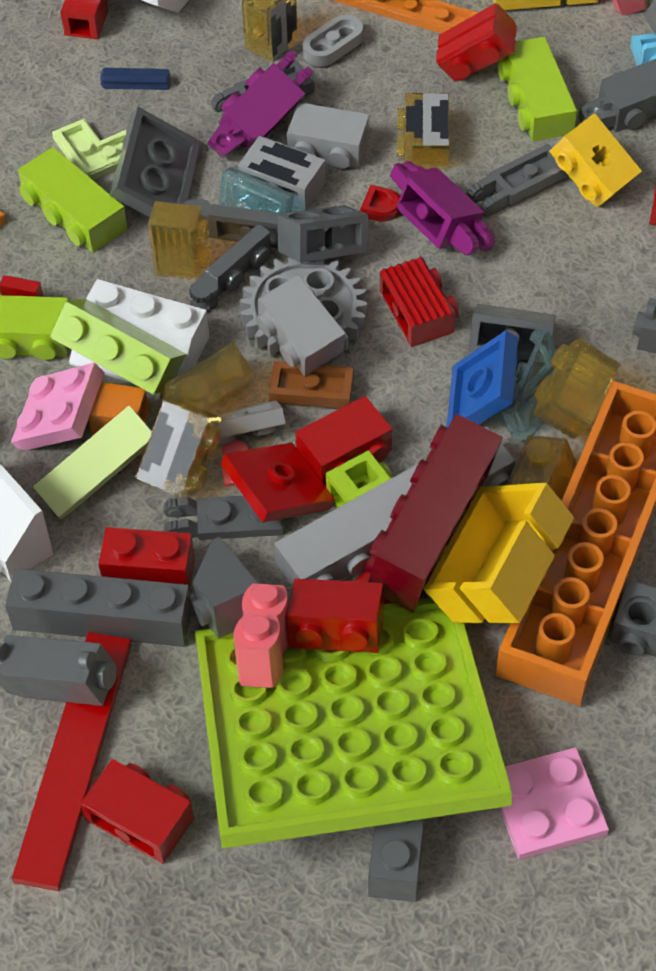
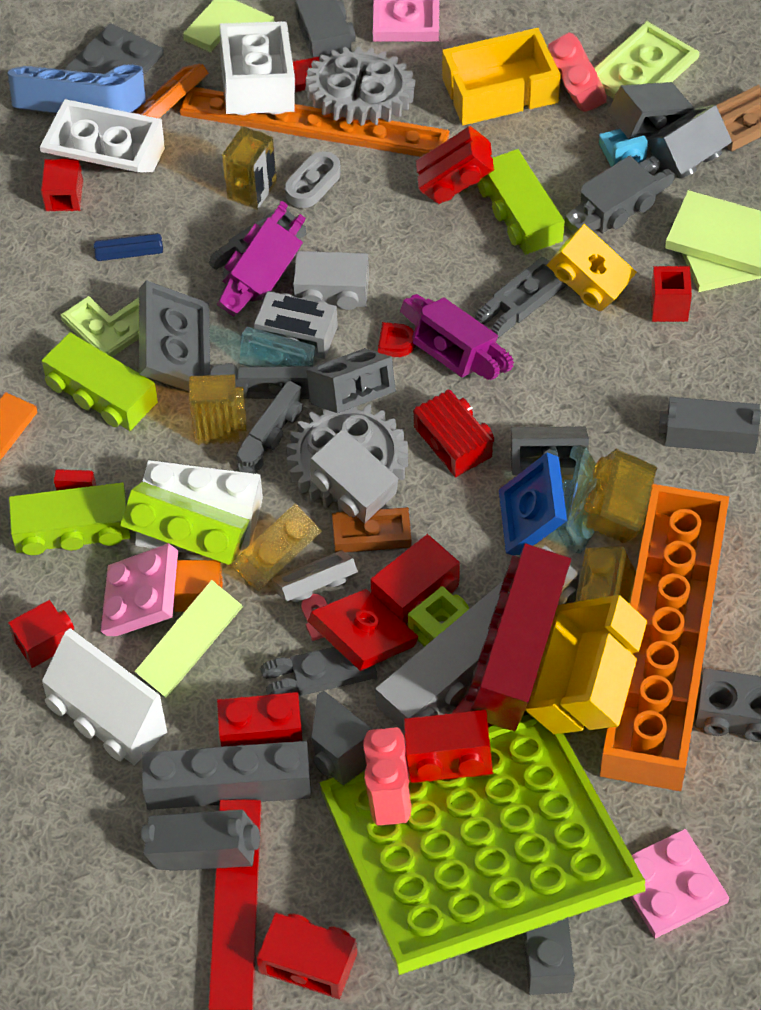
camera: 10 degrees left, 0 degrees up
(179, 448) = (267, 613): brick -> none
(425, 130) = (423, 260): brick -> none

